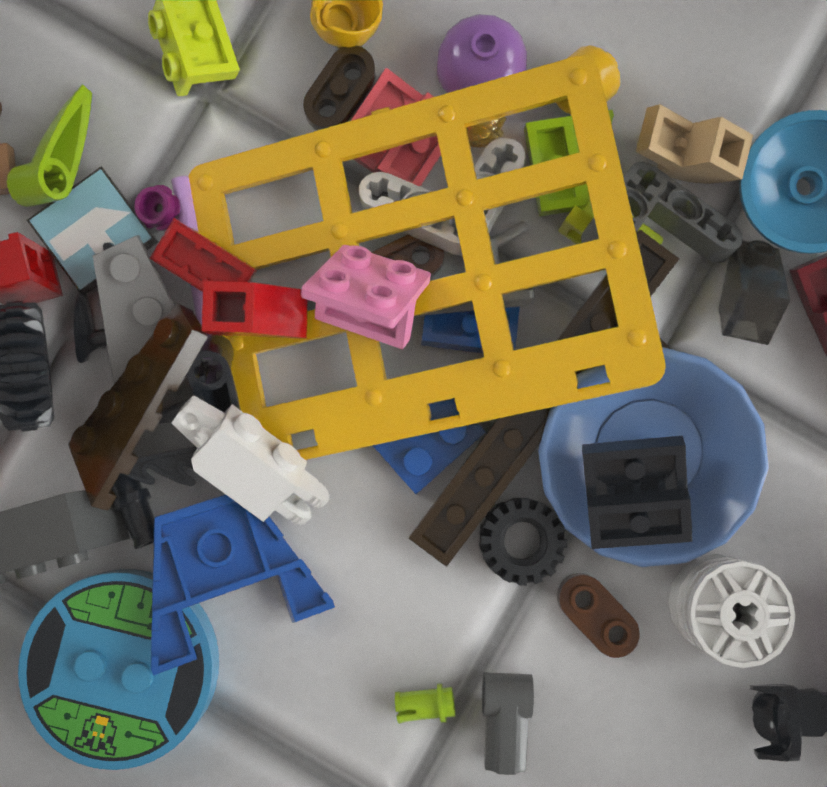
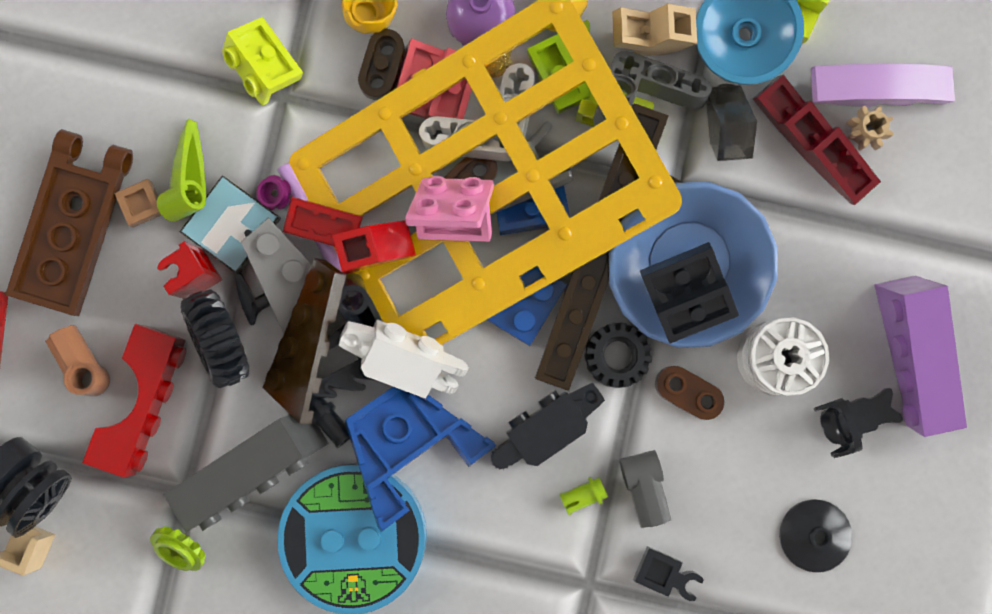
camera: 20 degrees left, 0 degrees up
(406, 606) = (549, 428): none -> black hinge

